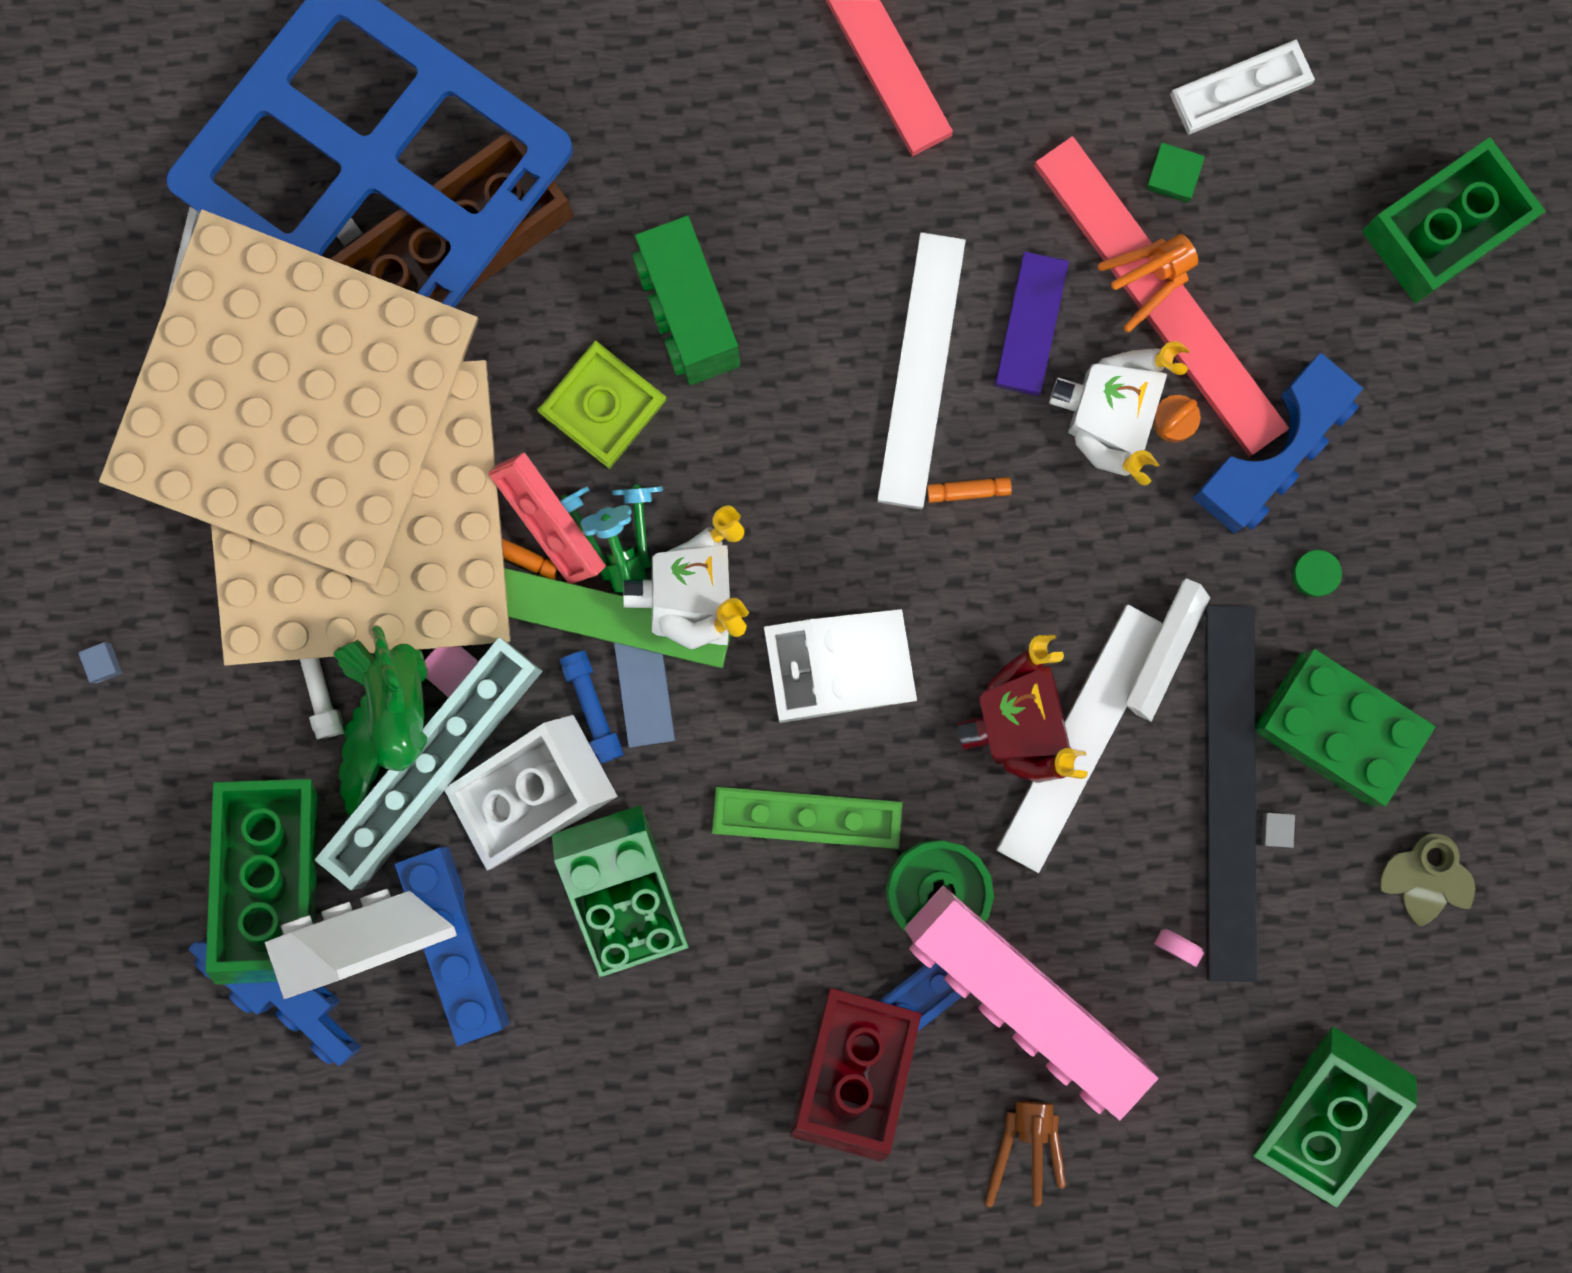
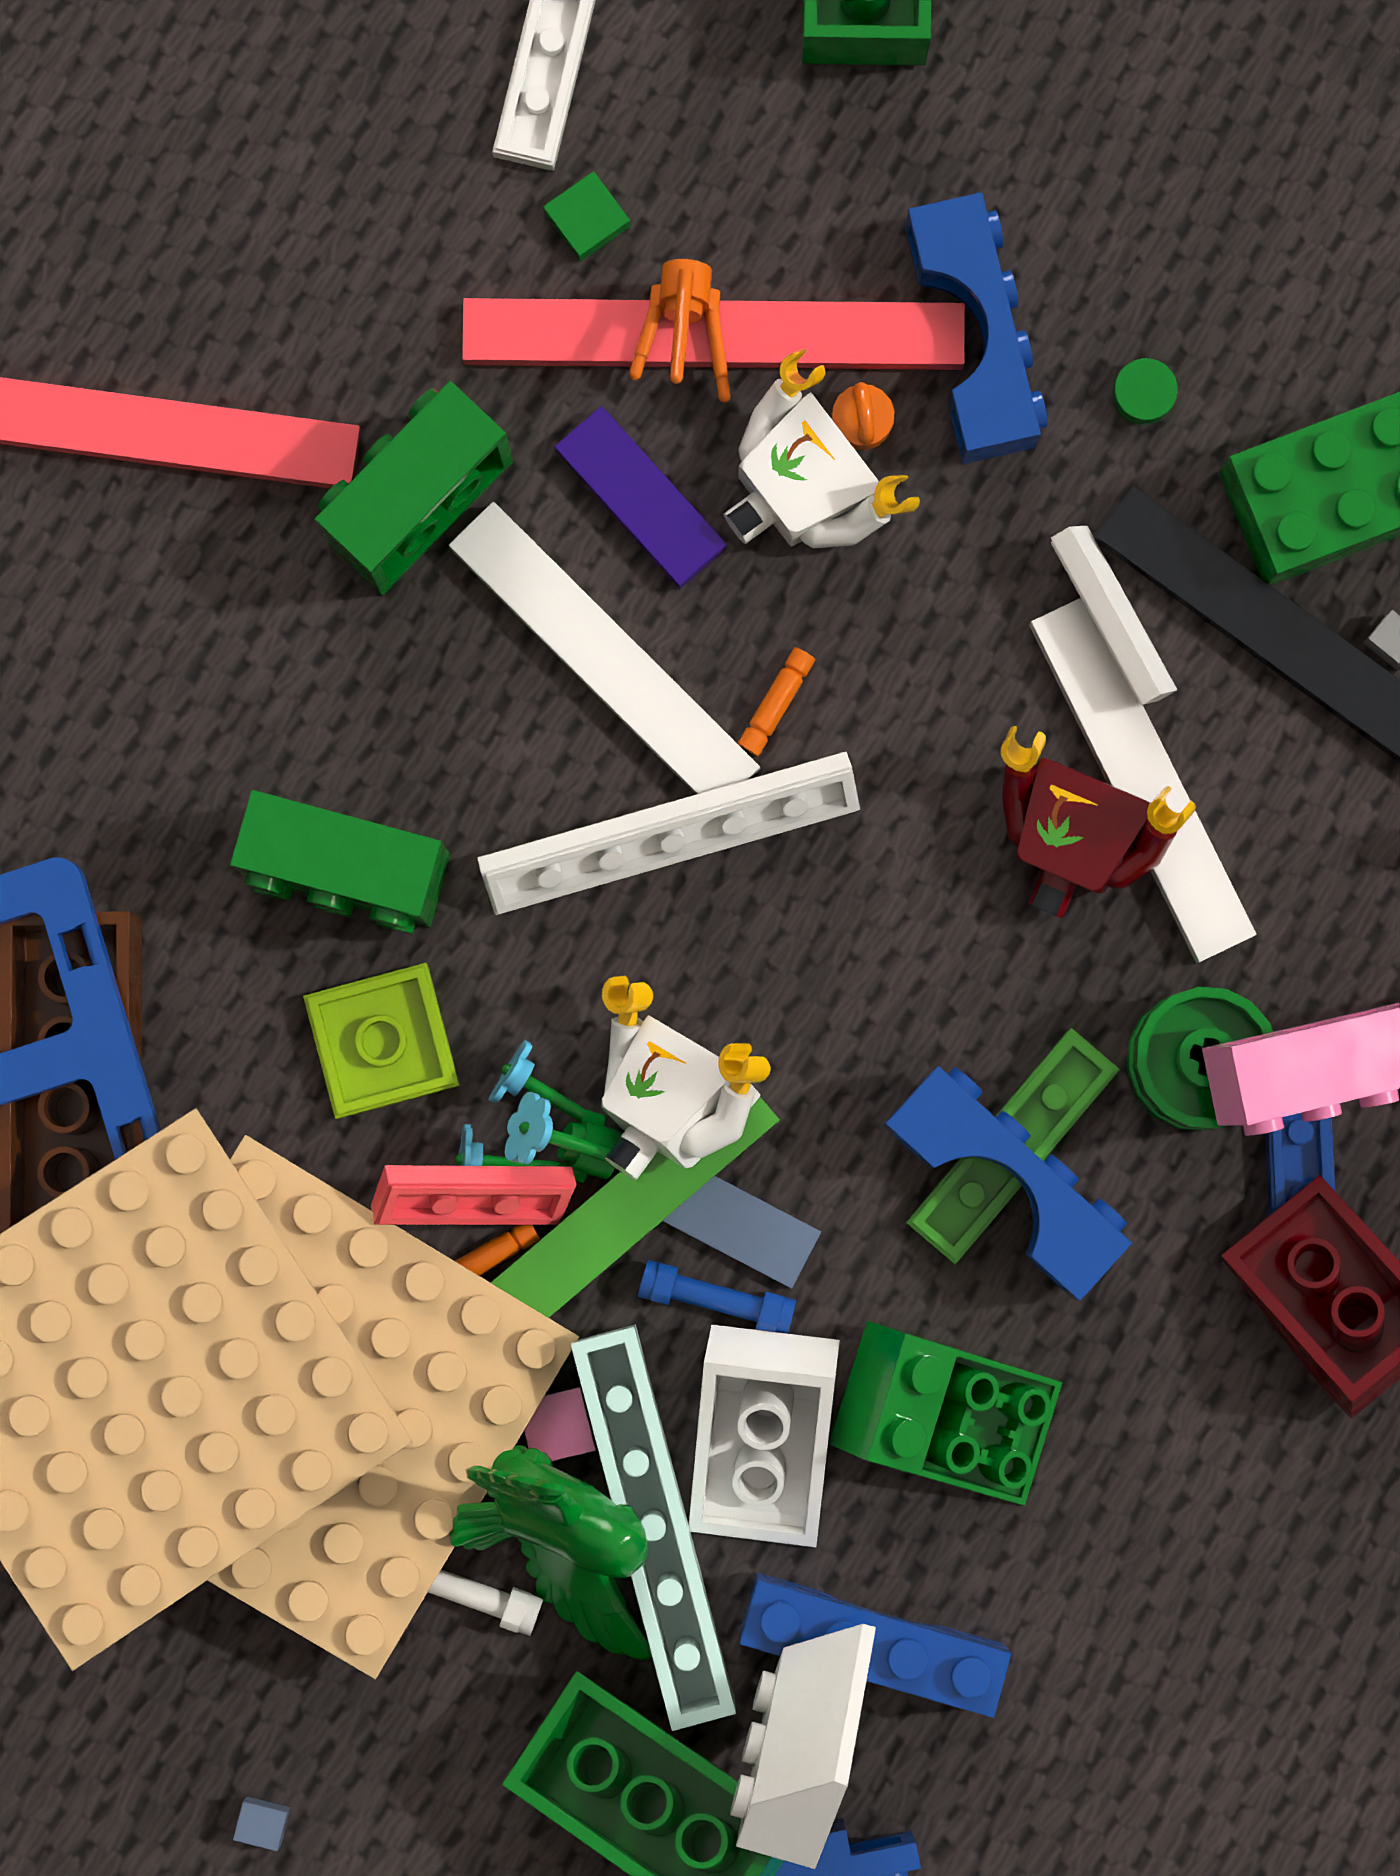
camera: 55 degrees left, 0 degrees up
(775, 890) = (1069, 1236): none -> blue arch
(839, 664) = (871, 987): white slope -> none
(844, 482) = (669, 833): none -> white tile
(938, 184) = (414, 486): none -> green brick

